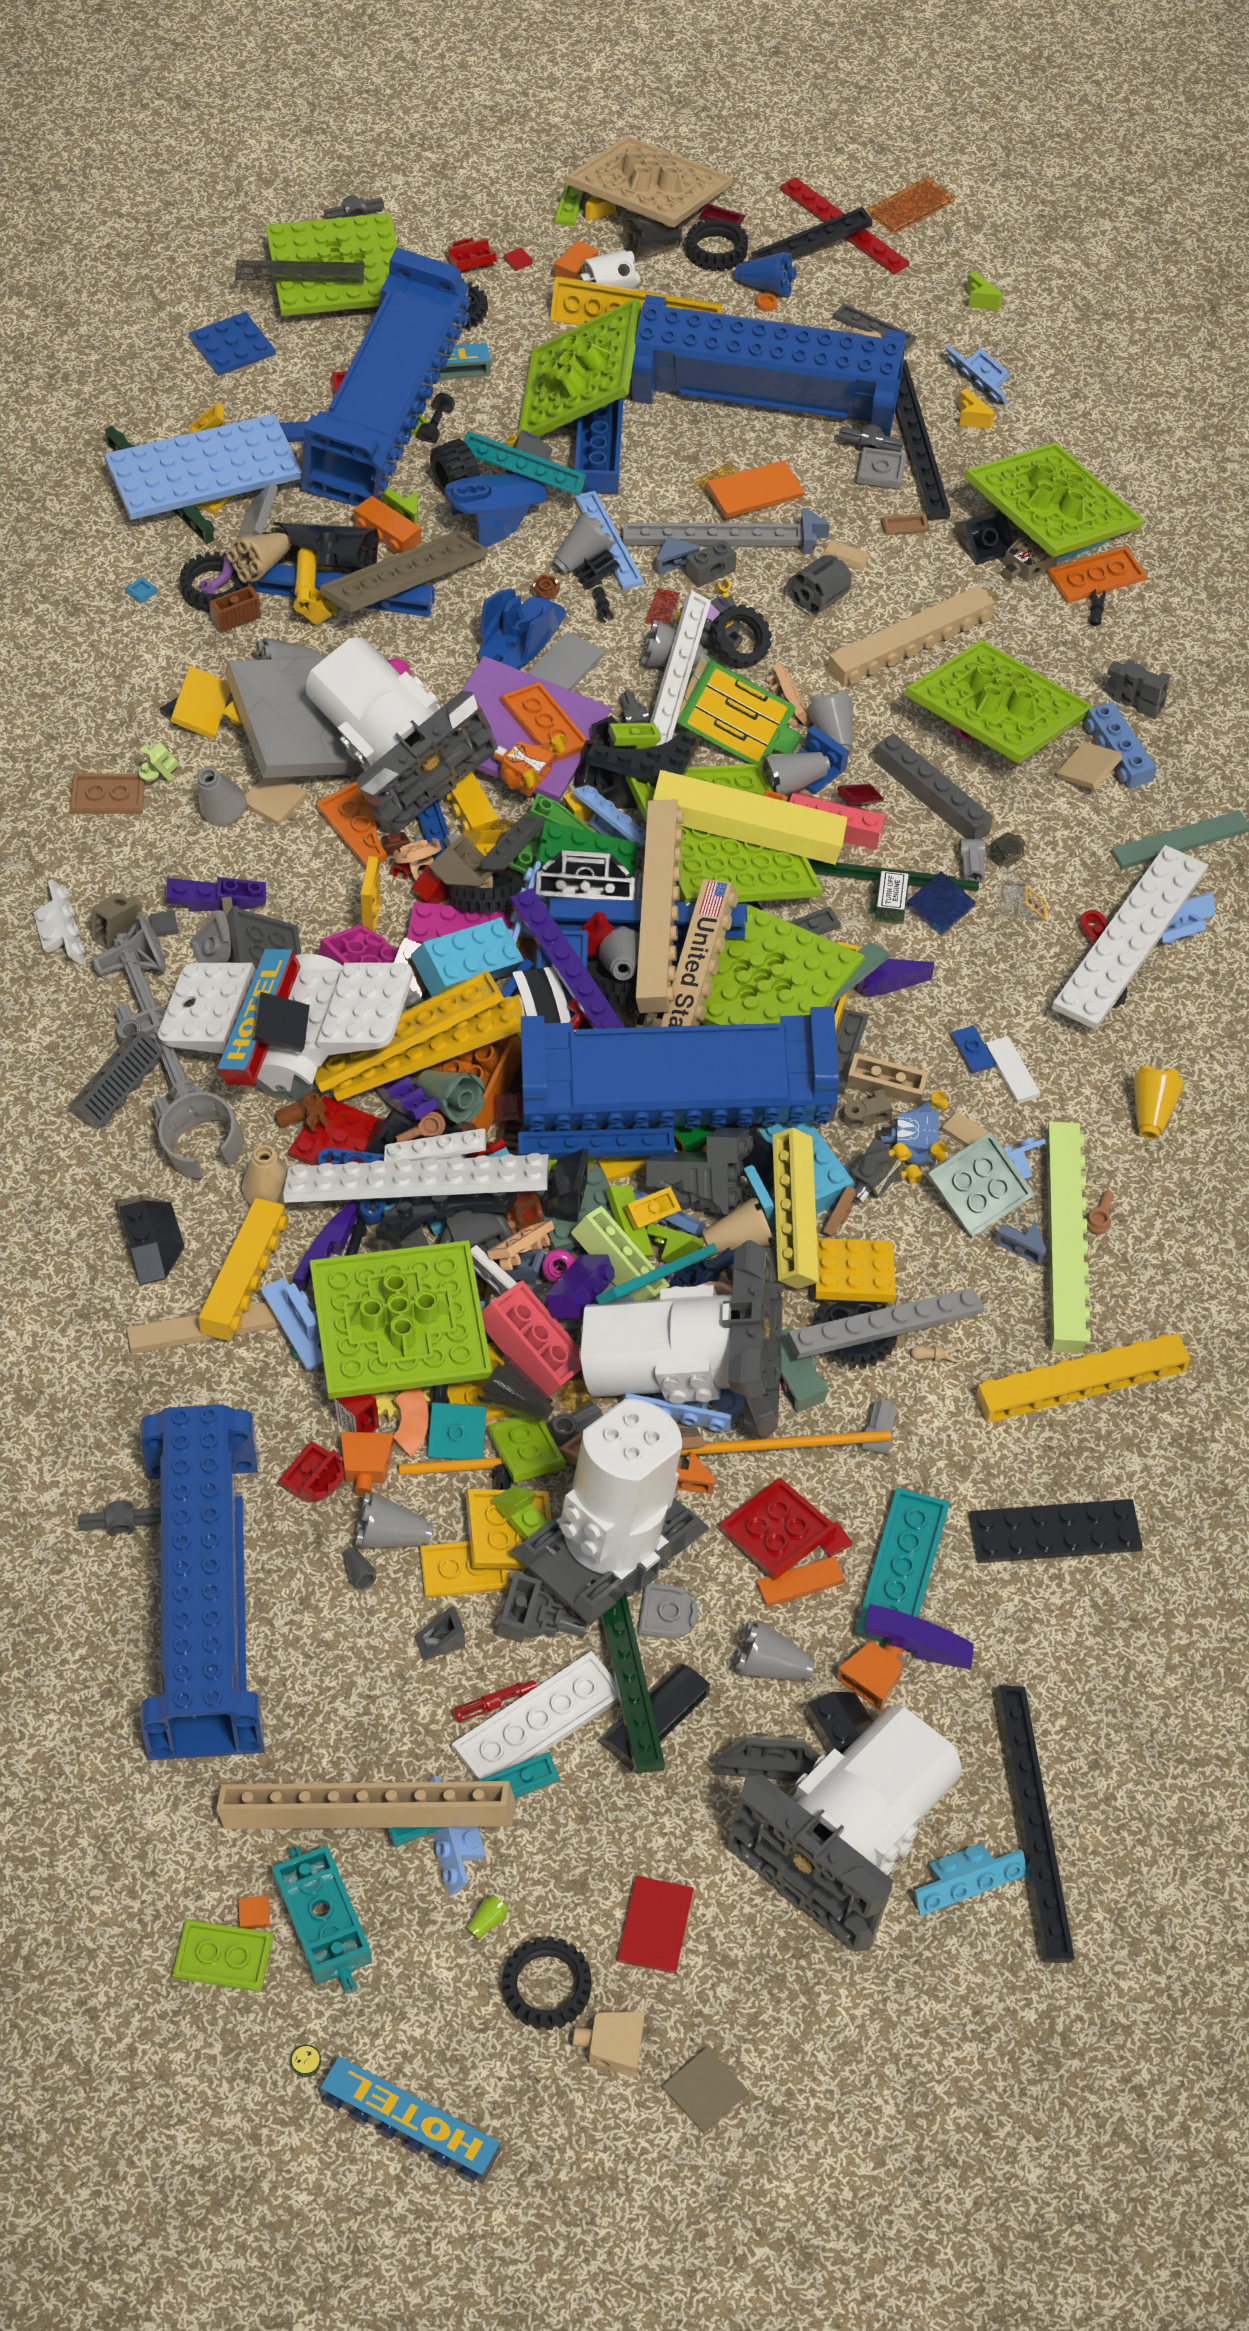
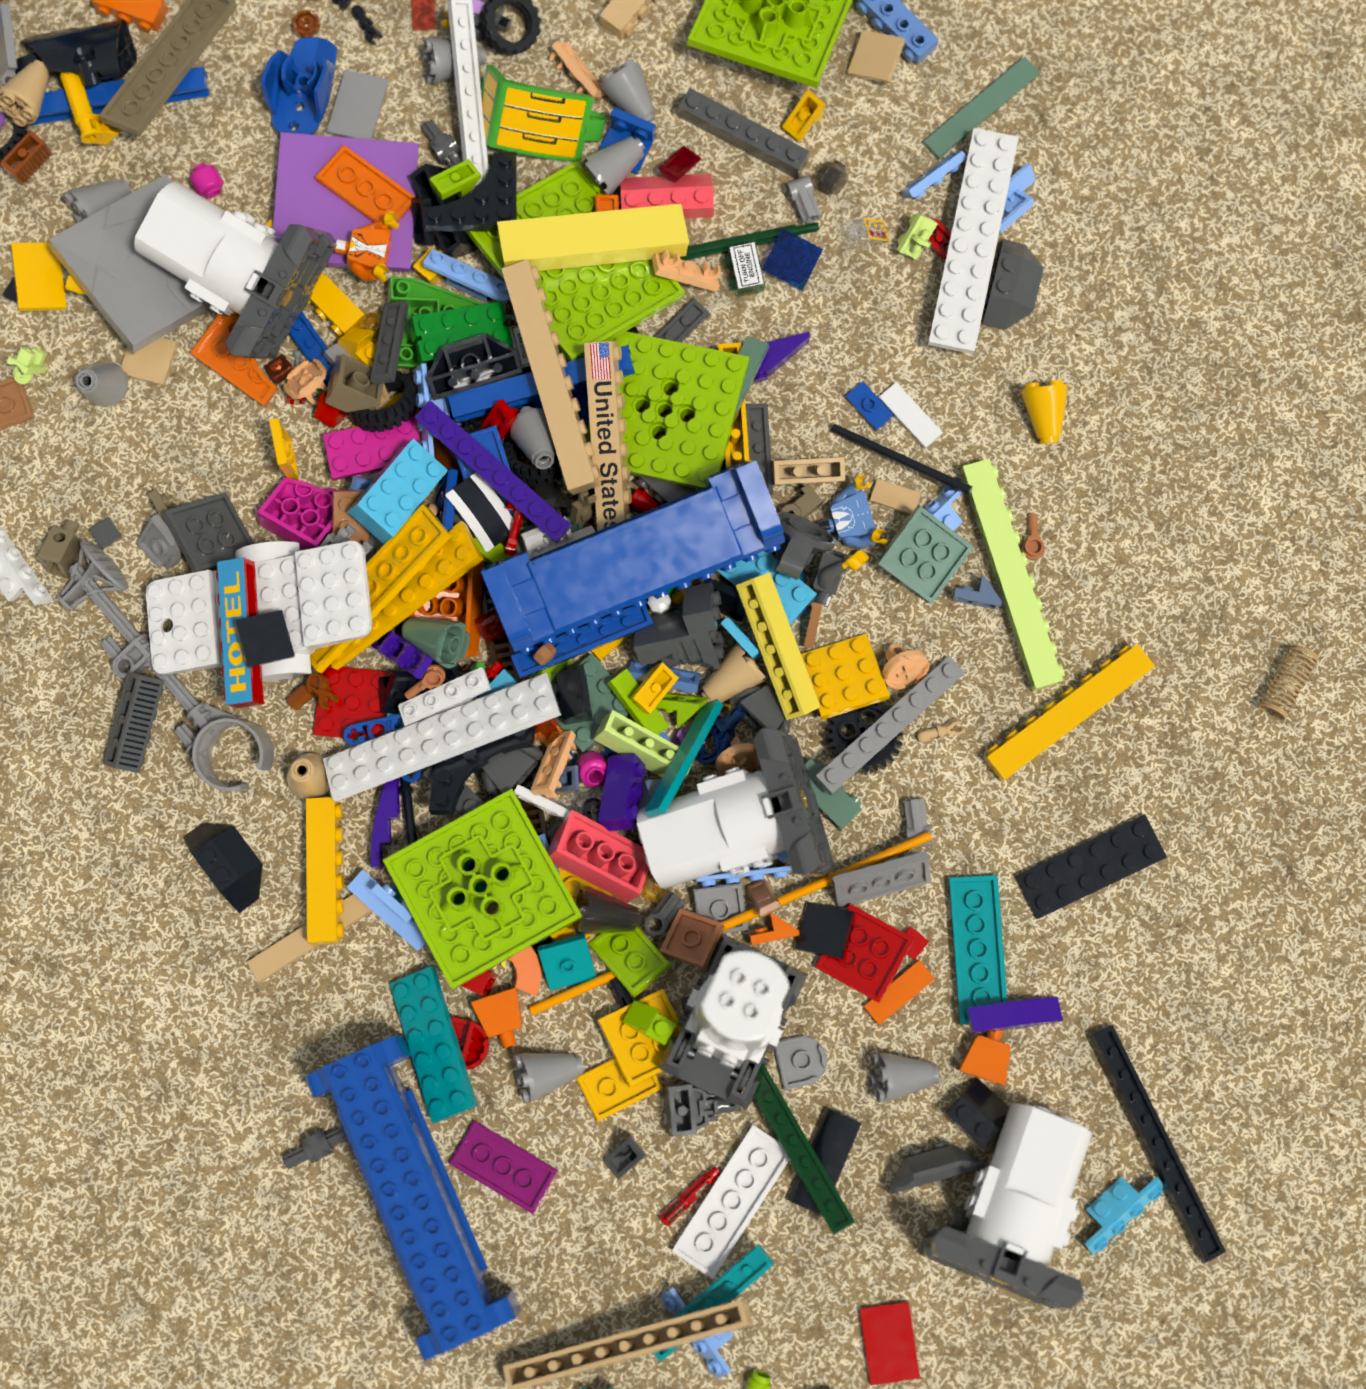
camera: 15 degrees left, 25 degrees up
(208, 895) = (136, 488): dark purple slope -> none
(284, 1460) = (433, 1045): none -> teal plate
(306, 1606) = (503, 1167): none -> magenta tile
(359, 1568) = (535, 1119): dark grey cone -> none
(553, 1135) = (545, 654): none -> medium nougat tile
(688, 1139) = (659, 605): none -> white tile
(743, 1492) = (825, 931): none -> black tile
(823, 1460) = (881, 879): none -> light grey plate
(831, 876) = (686, 271): none -> light nougat plate
(851, 1129) = (801, 543): none -> dark grey piece
(921, 1278) = (904, 667): none -> light nougat tile
(1003, 787) = (805, 114): none -> yellow slope
(1035, 1131) = (954, 483): none -> black bar
(1074, 917) = (917, 235): none -> yellowish green hips
(1111, 877) = (934, 175): none -> light blue plate
(1157, 992) = (1013, 286): none -> dark grey wedge

